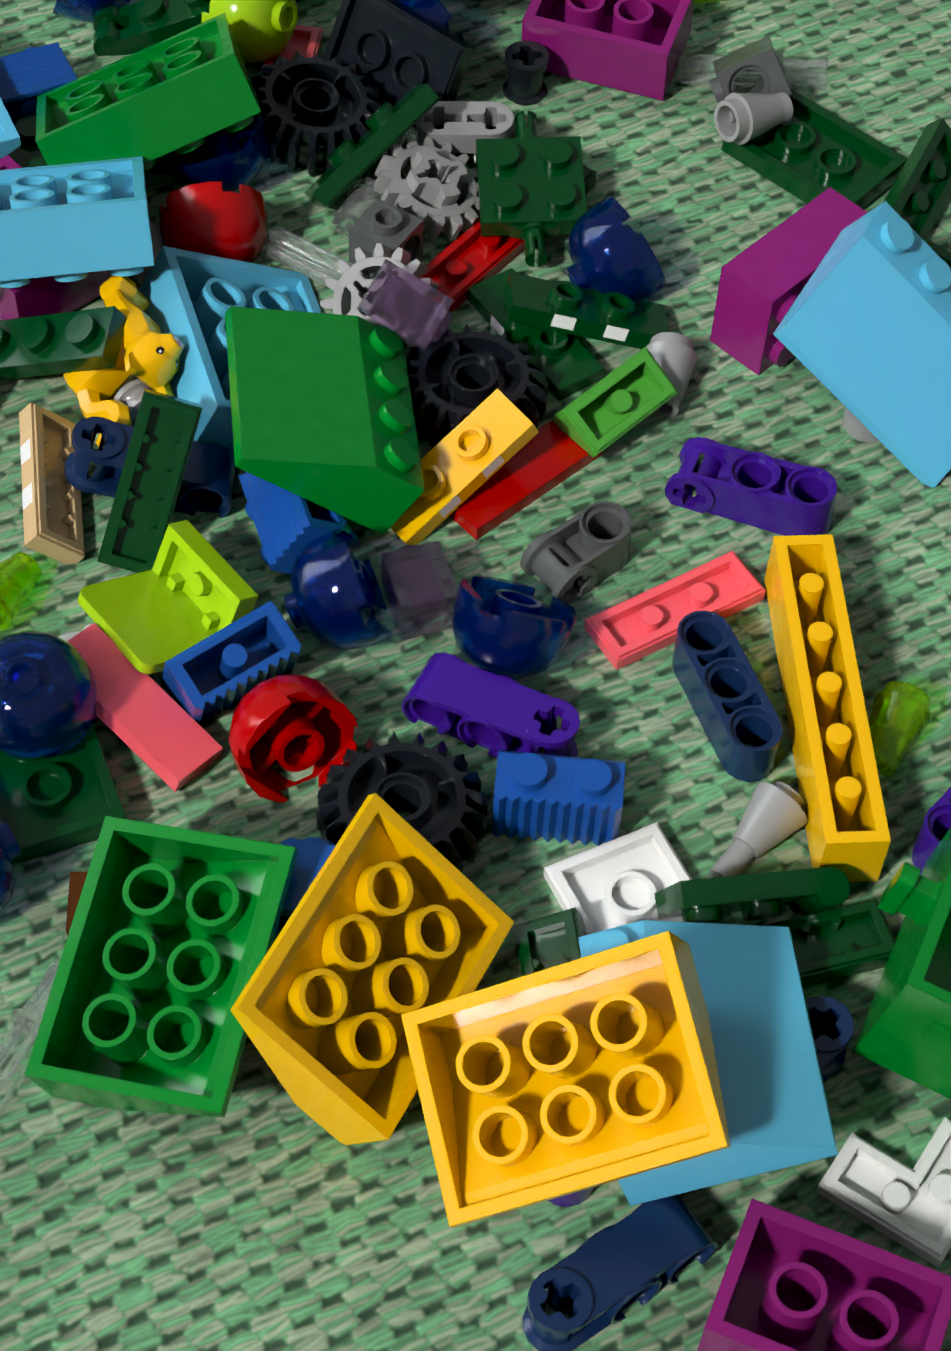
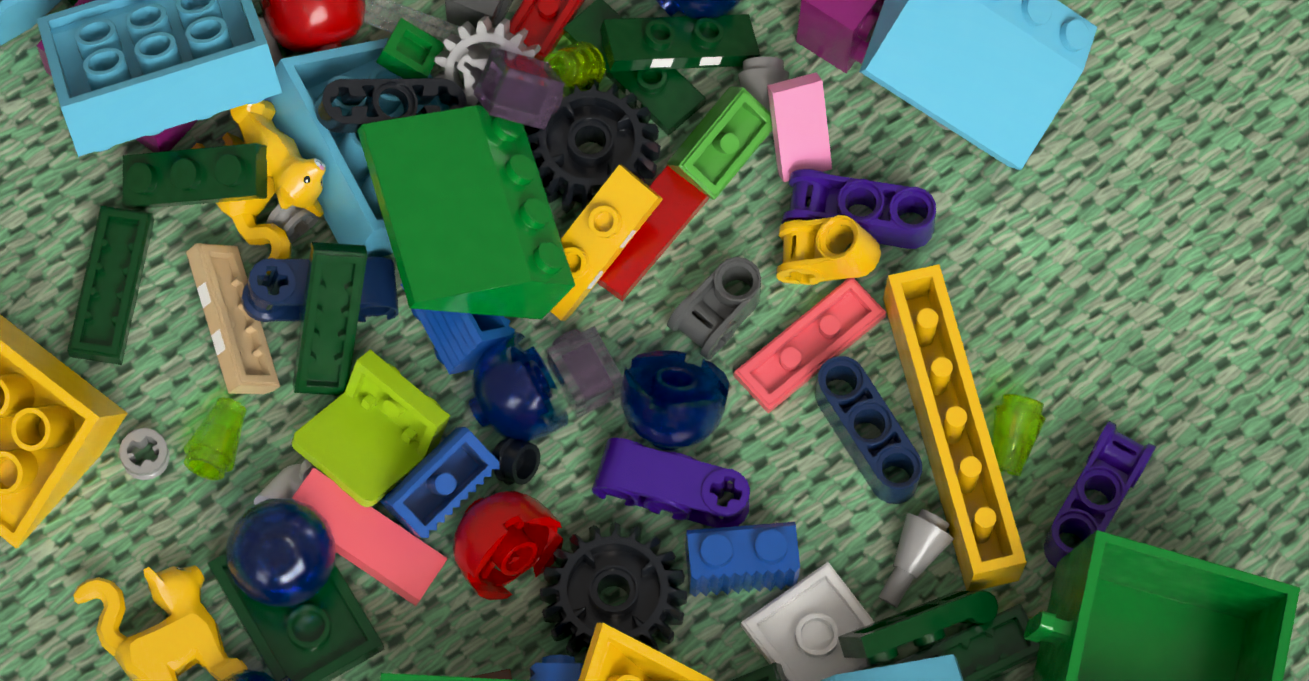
camera: 10 degrees left, 15 degrees up
(231, 281) = (409, 91): none -> black beam
(300, 277) = (409, 51): none -> green plate
(324, 660) = (517, 461): none -> black plate
(473, 310) = (578, 64): none -> clear neon green cone
(699, 392) = (799, 125): none -> bright pink tile
(712, 513) = (816, 250): none -> yellow piece

